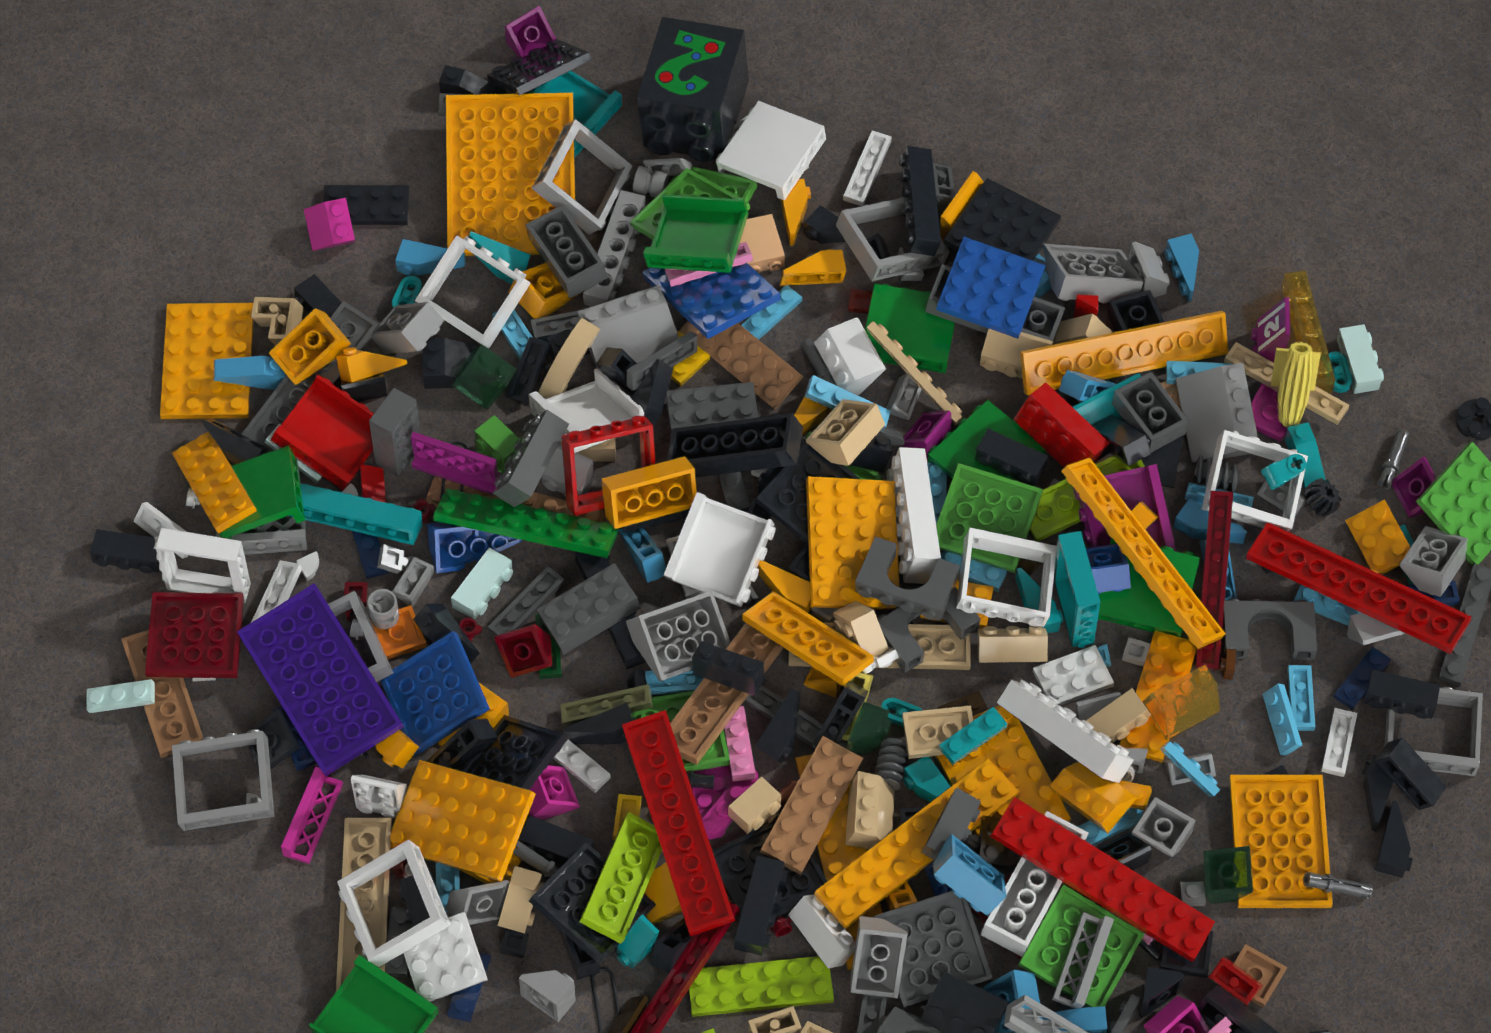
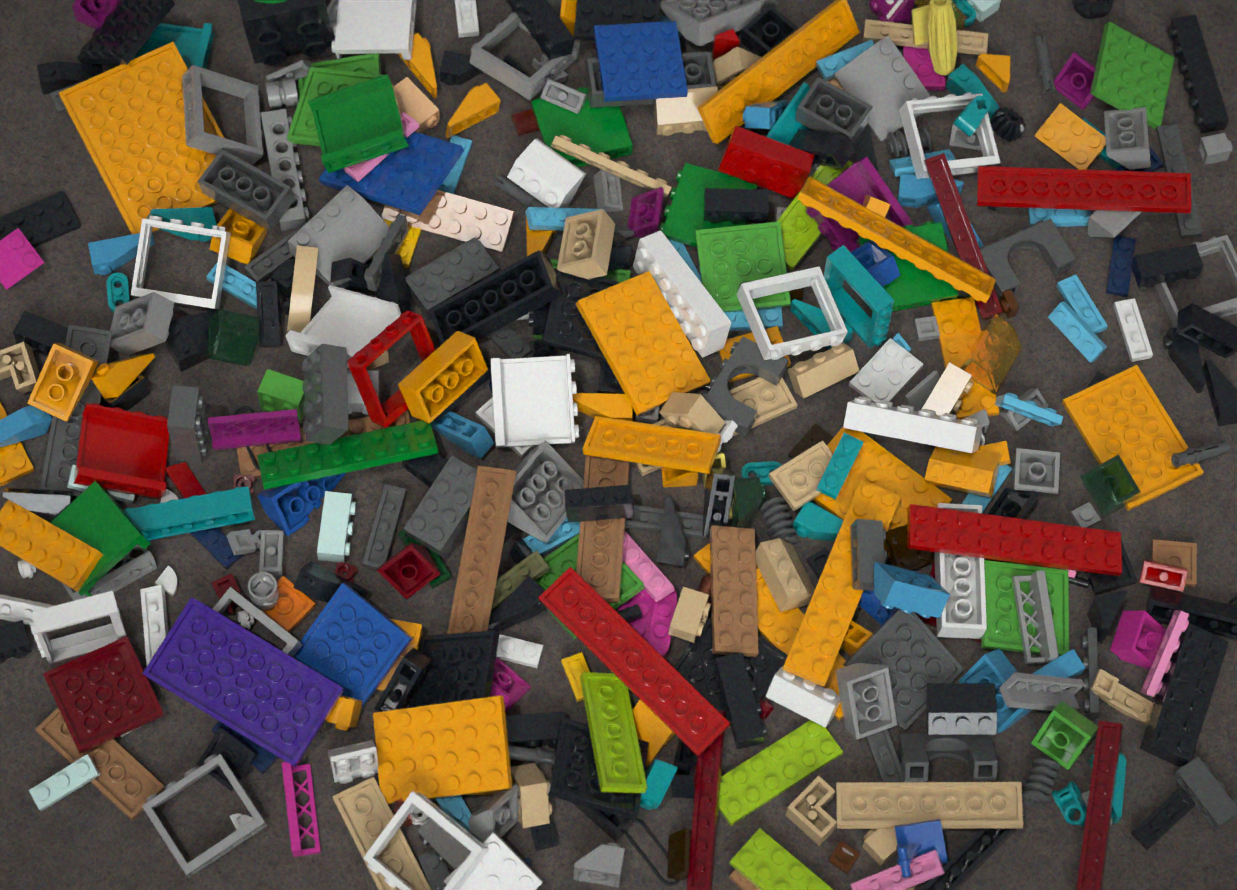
camera: 30 degrees left, 5 degrees up
(595, 659) = (482, 550): none -> medium nougat plate
(906, 291) = (563, 96): none -> light grey slope
(927, 600) = (686, 369): dark grey arch -> none
(1342, 442) = (996, 69): none -> light orange slope

